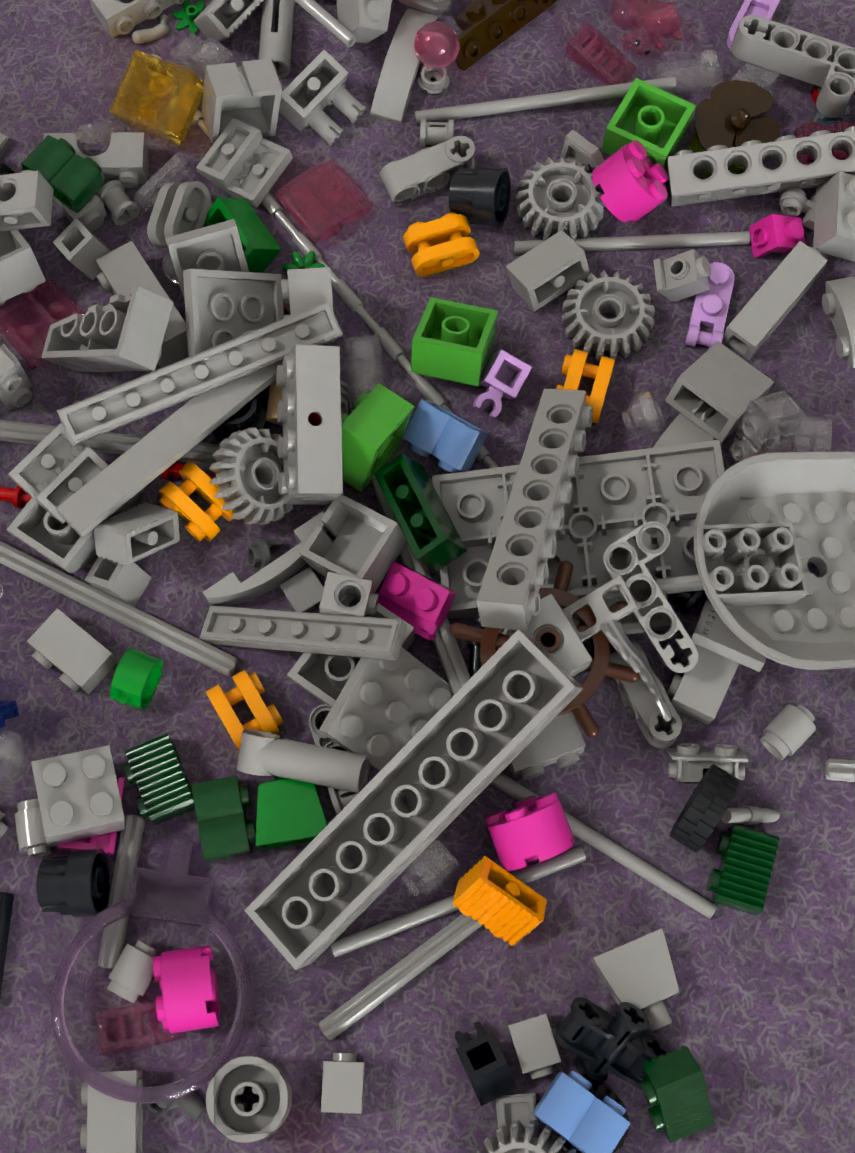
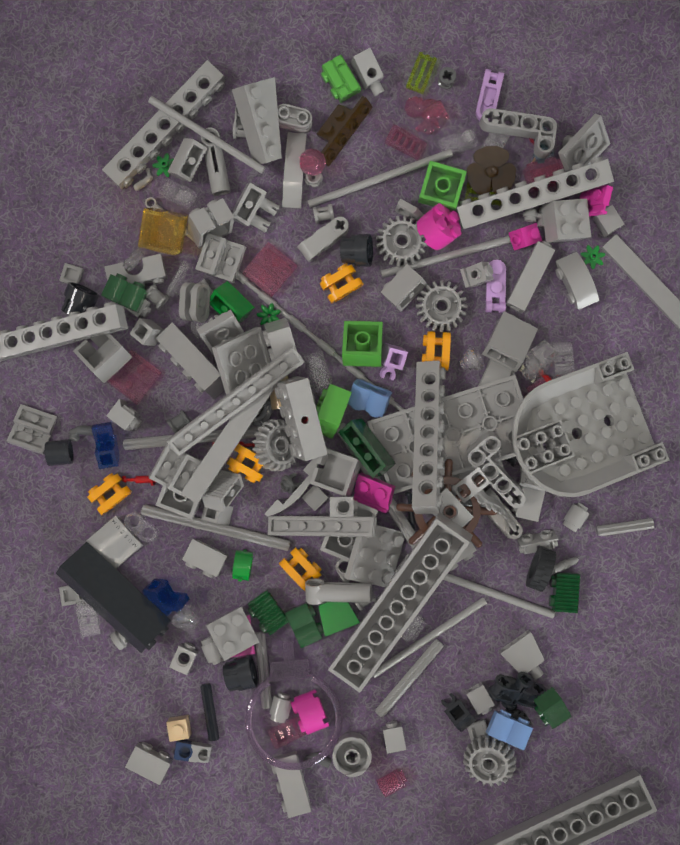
camera: 15 degrees left, 15 degrees up
(113, 336) = (184, 390): light grey wedge -> none
(499, 901) = (449, 636): light orange brick -> none
(530, 831) = (458, 600): dark pink brick -> none

